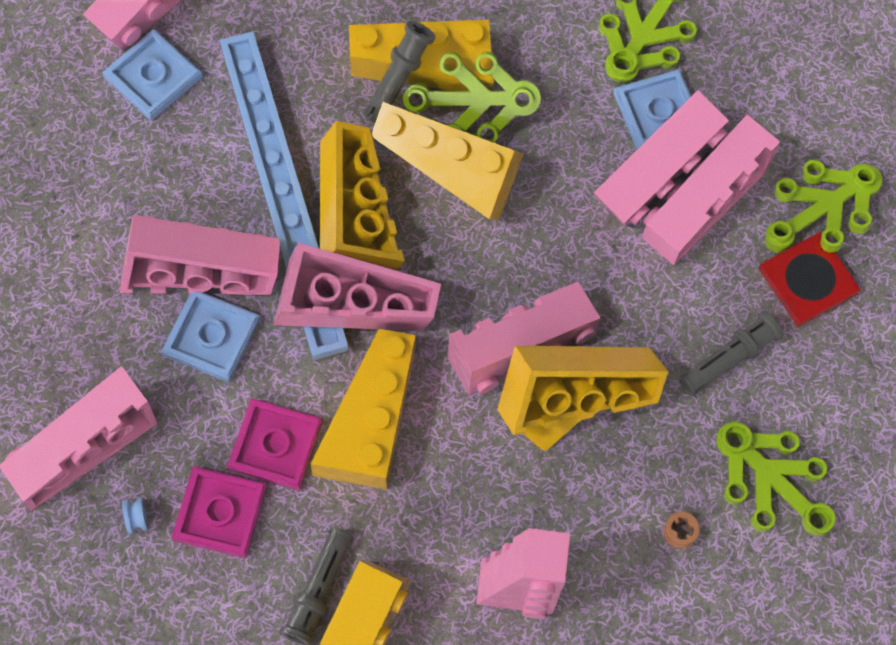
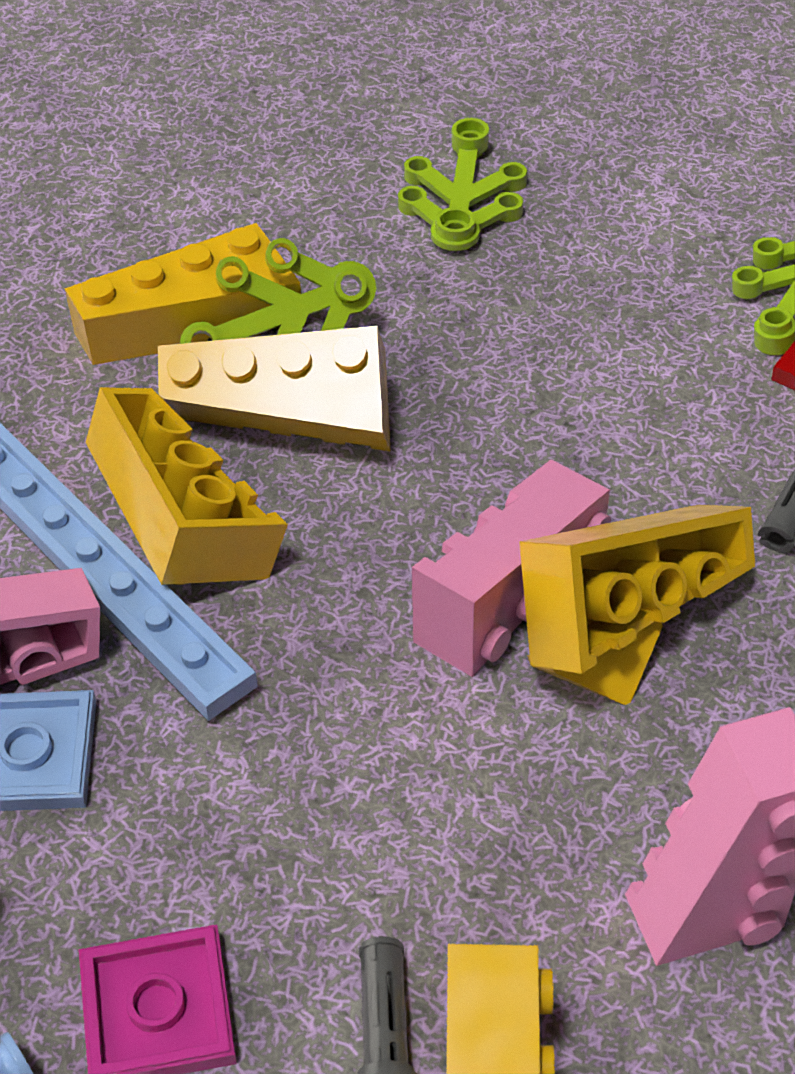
camera: 20 degrees left, 20 degrees down
(275, 444) = (203, 864): dark pink tile -> none
(352, 293) = (230, 589): bright pink wedge -> none
(368, 421) = (343, 769): yellow wedge -> none
(404, 60) = (166, 287): dark grey pin -> none
(651, 103) = (530, 262): light blue tile -> none
(663, 158) = (575, 288): bright pink wedge -> none
(710, 190) = (657, 303): bright pink wedge -> none

